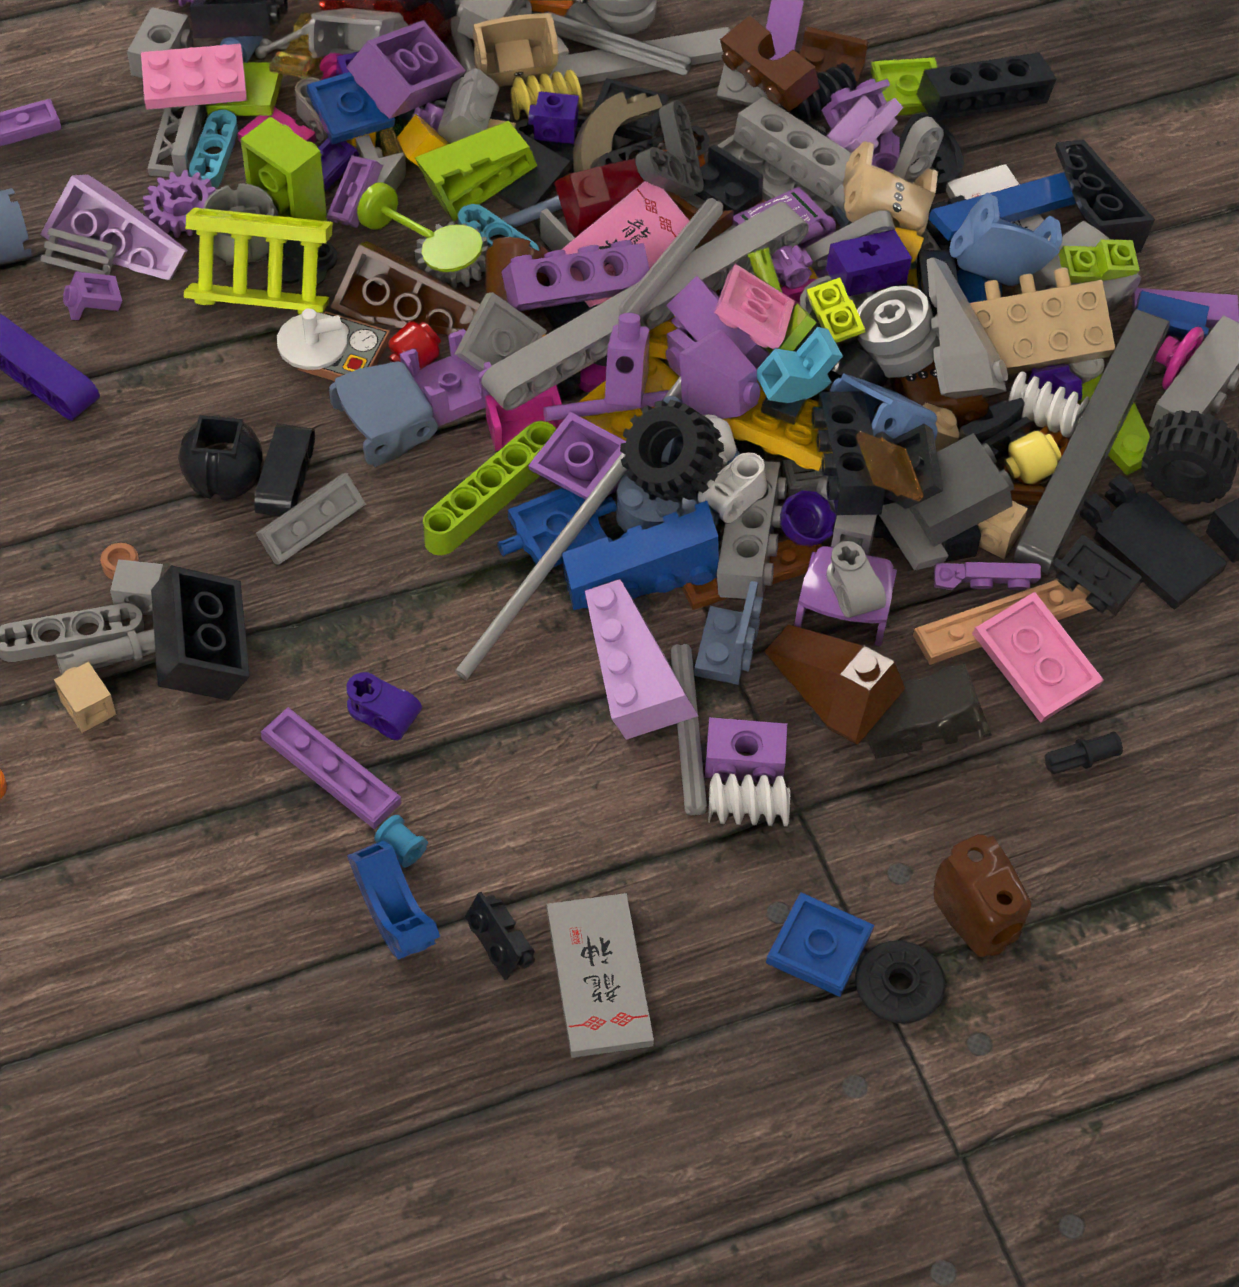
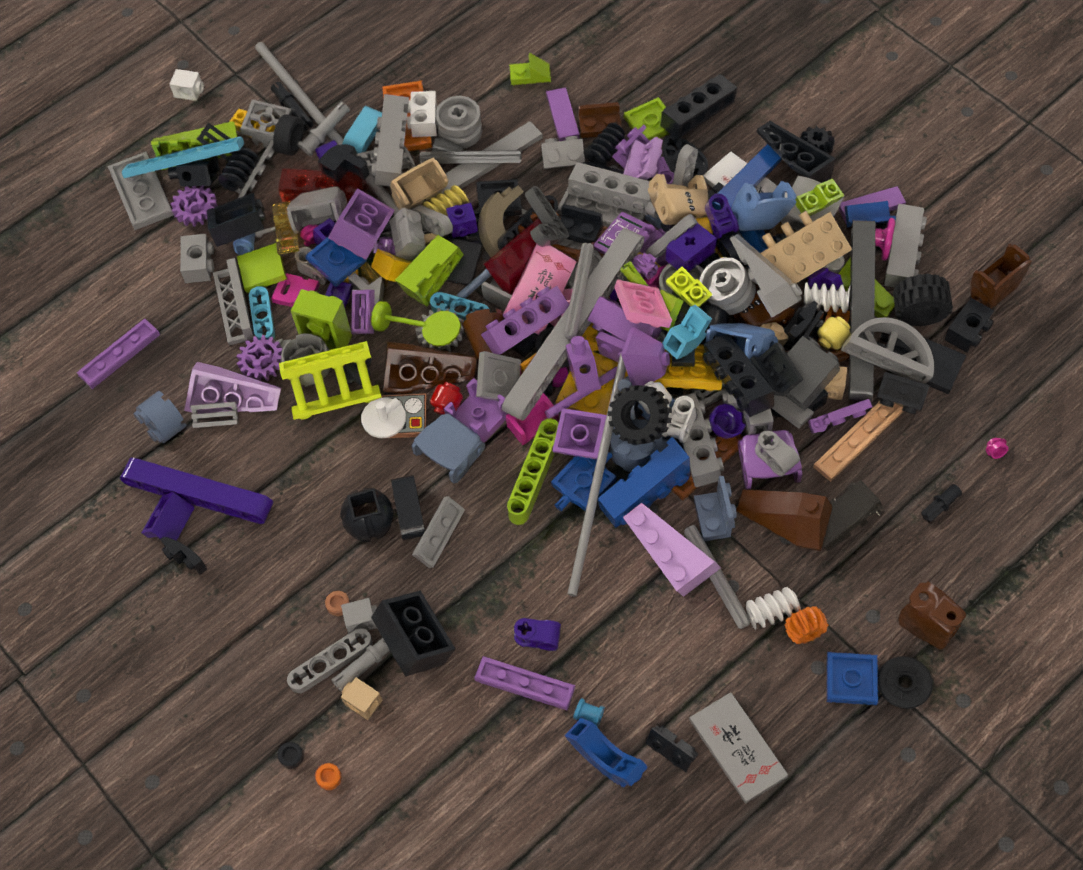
camera: 15 degrees left, 5 degrees up
(91, 291) = (235, 437): medium lavender bracket -> none
(193, 76) = (230, 273): bright pink plate -> none
(261, 51) = (259, 238): light grey hinge -> none
(514, 104) = (434, 221): none -> light grey beam
(761, 739) = (765, 568): medium lavender brick -> none
(783, 80) = (586, 148): reddish brown arch -> none
(785, 840) = (806, 625): none -> orange gear
(889, 466) = (769, 377): clear orange piece -> none
(935, 237) = (721, 220): none -> dark purple piece
(1037, 657) = (891, 455): bright pink plate -> none
(1094, 517) = (885, 358): none -> light grey window
(1148, 189) = (819, 138): none -> black gear
(1210, 708) = (997, 448): none -> dark pink plate

